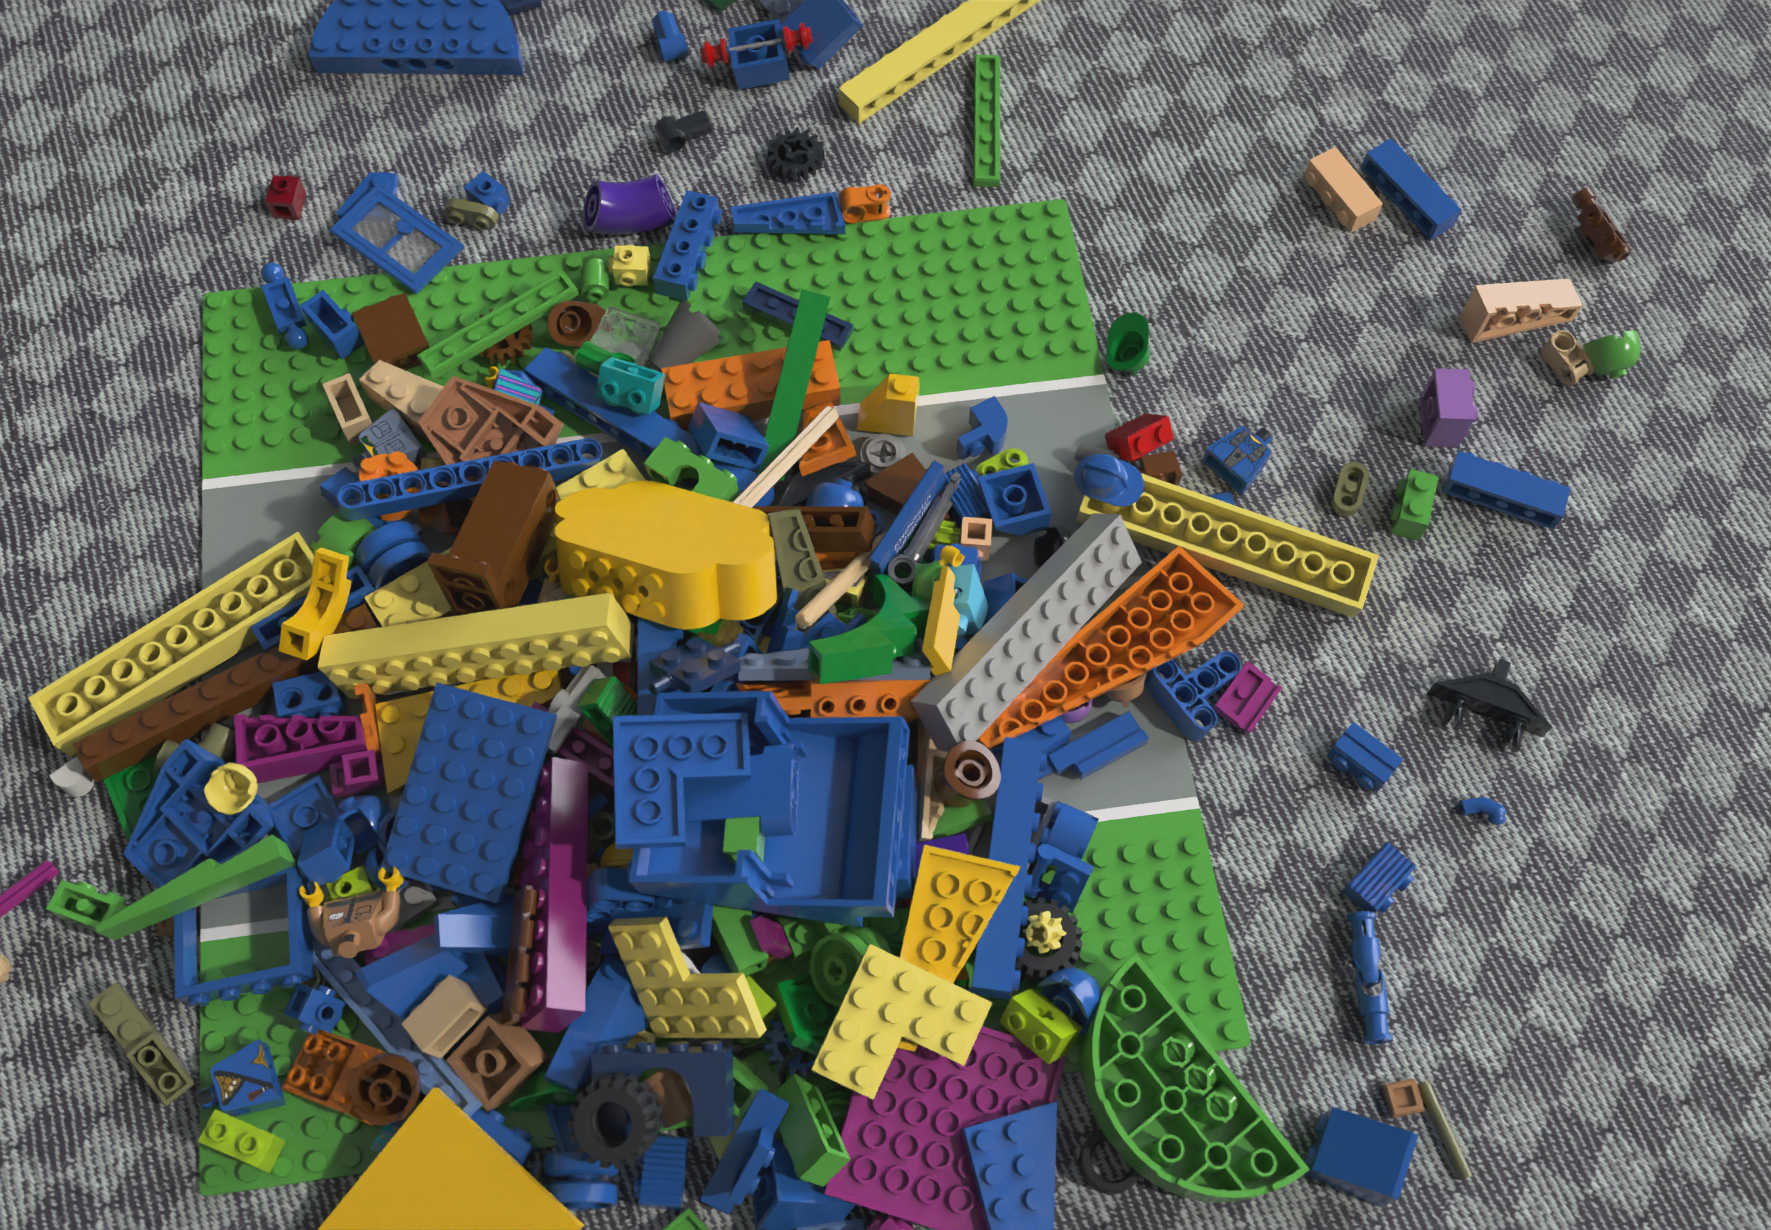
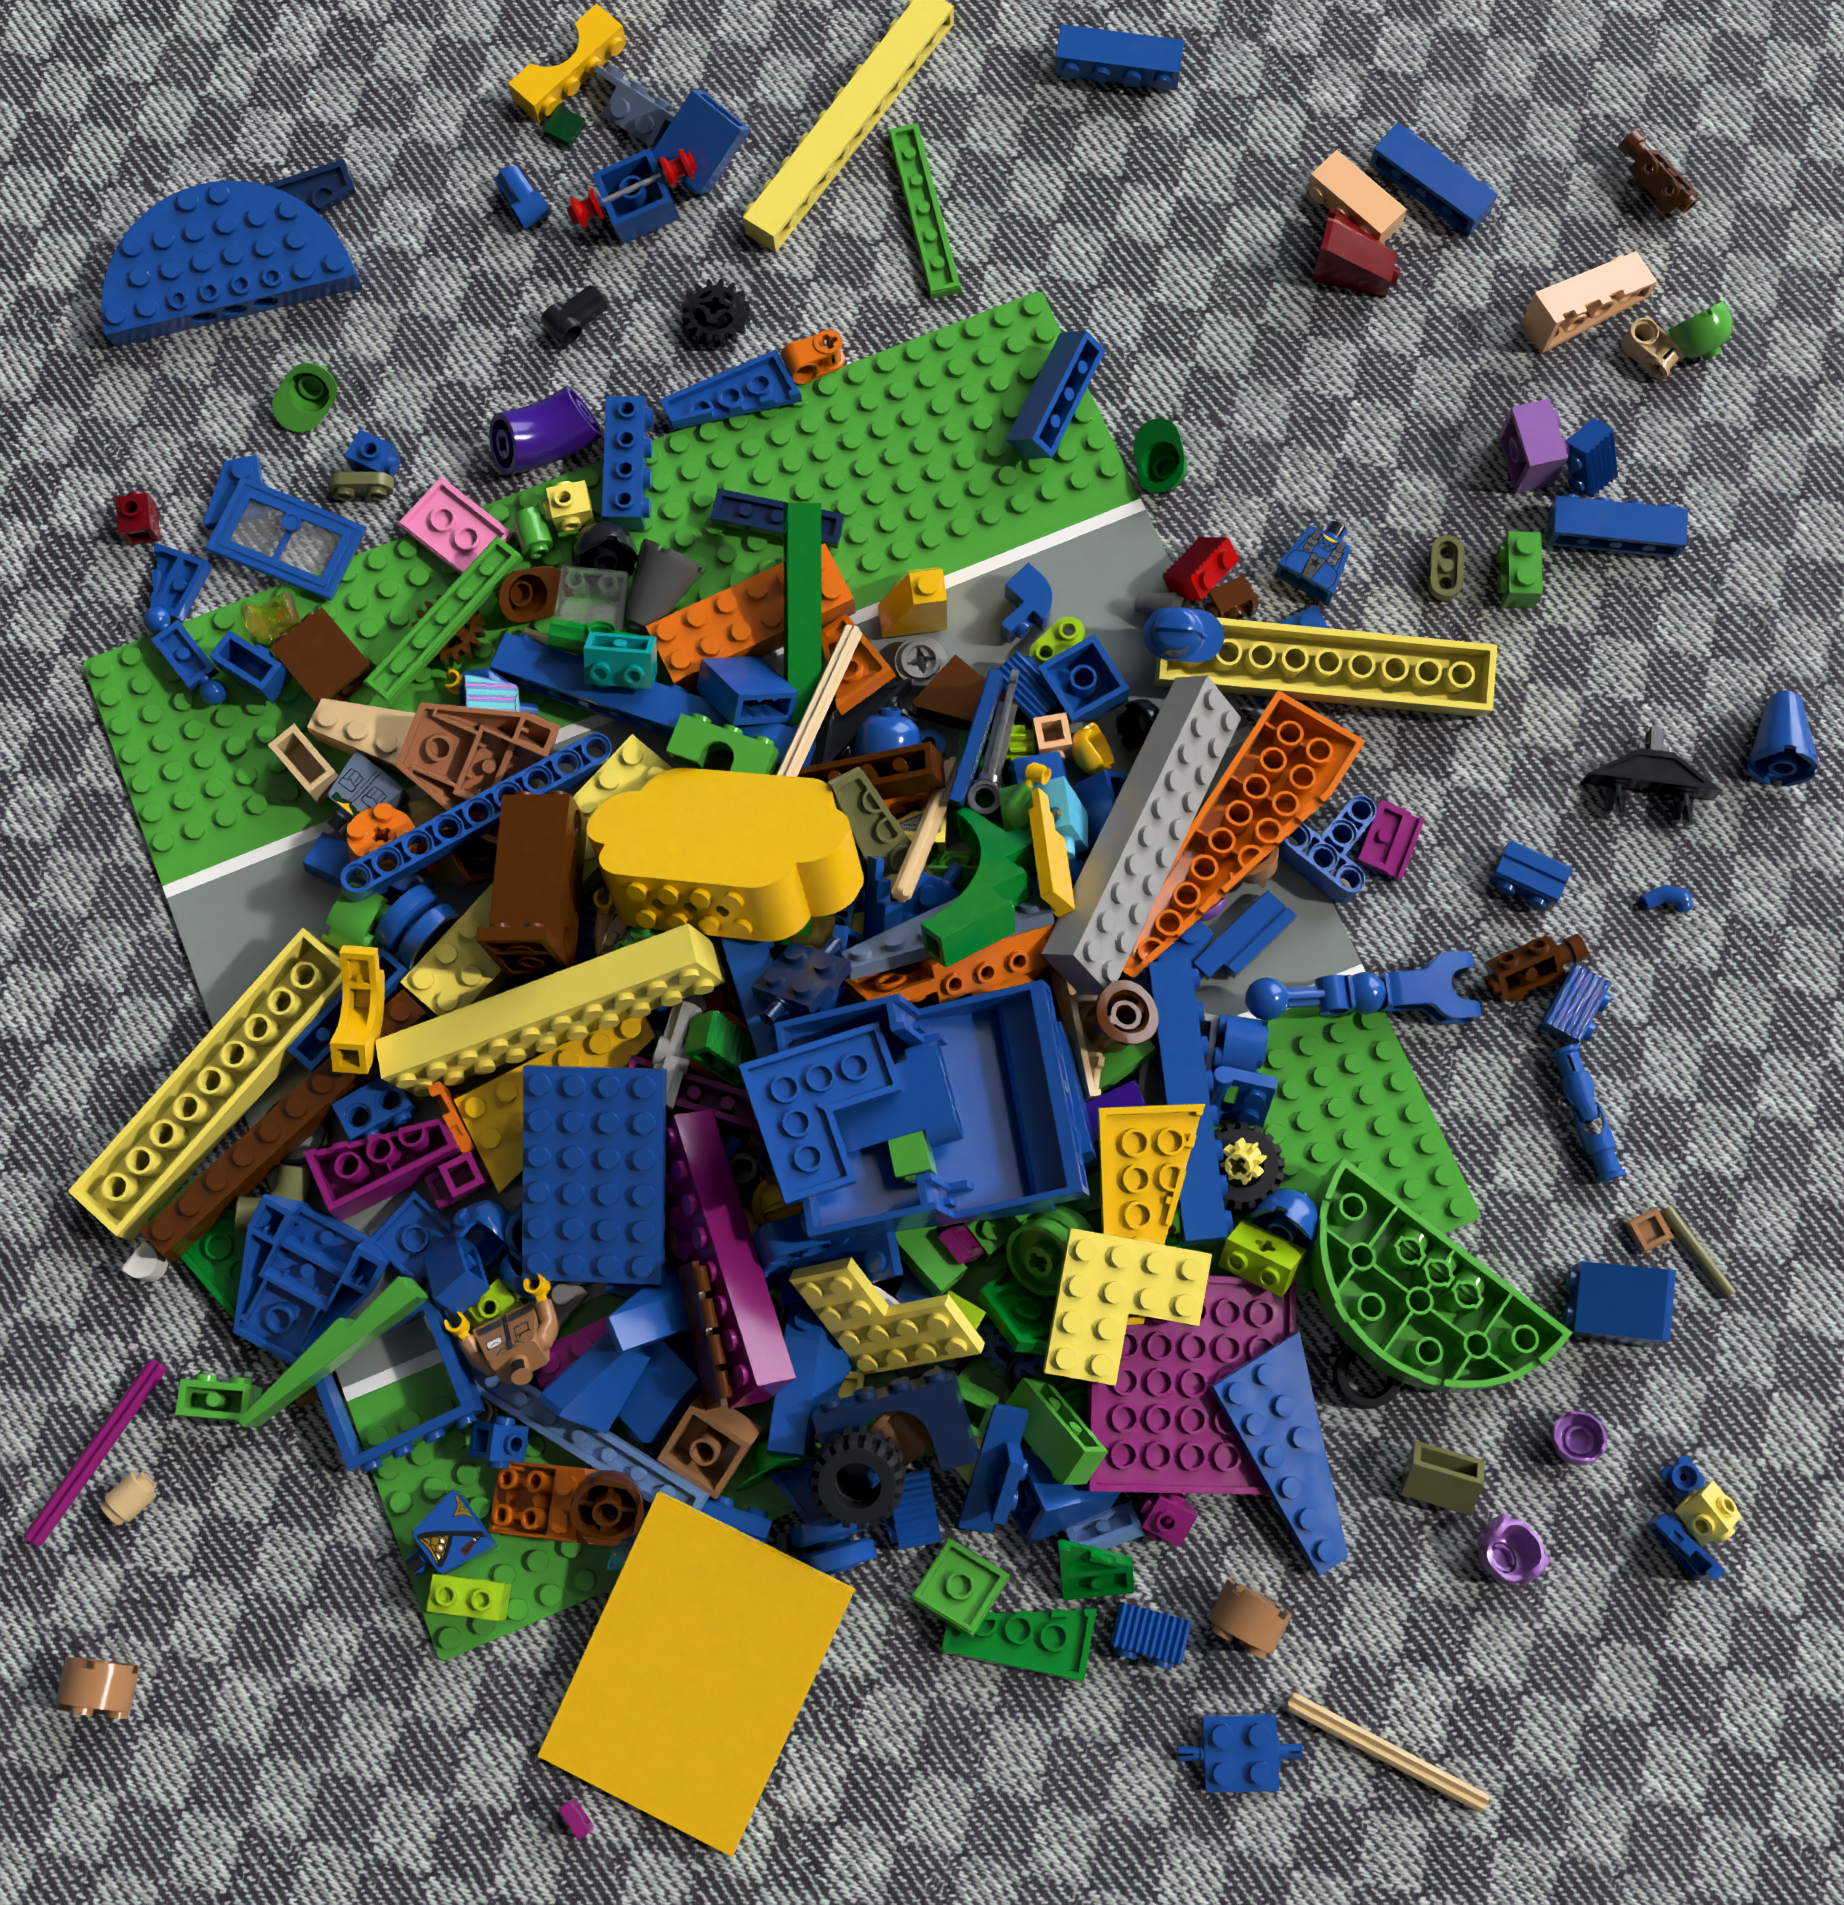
camera: 10 degrees left, 10 degrees up
(142, 1043) = (327, 1525): olive slope -> none
(231, 788) = (331, 1235): light yellow hair -> none
(300, 250) = (177, 581): none -> blue wing
(364, 292) = (272, 618): none -> clear yellow bracket
(444, 1016) = (643, 1417): tan brick -> none
(448, 138) = (304, 397): none -> bright green piece
(531, 258) = (452, 526): none -> bright pink tile
(648, 300) = (605, 547): none -> black cylinder
(1006, 556) = (1091, 750): none -> yellow hair
(1054, 275) = (1056, 395): none -> blue brick
(1175, 42) = (1118, 57): none -> blue brick
(1194, 819) = (1366, 993): none -> blue piece
(1329, 232) = (1354, 258): none -> dark red slope
(1348, 835) = (1532, 966): none -> reddish brown brick
(1495, 429) = (1591, 458): none -> blue brick
(1615, 702) = (1783, 743): none -> blue cone

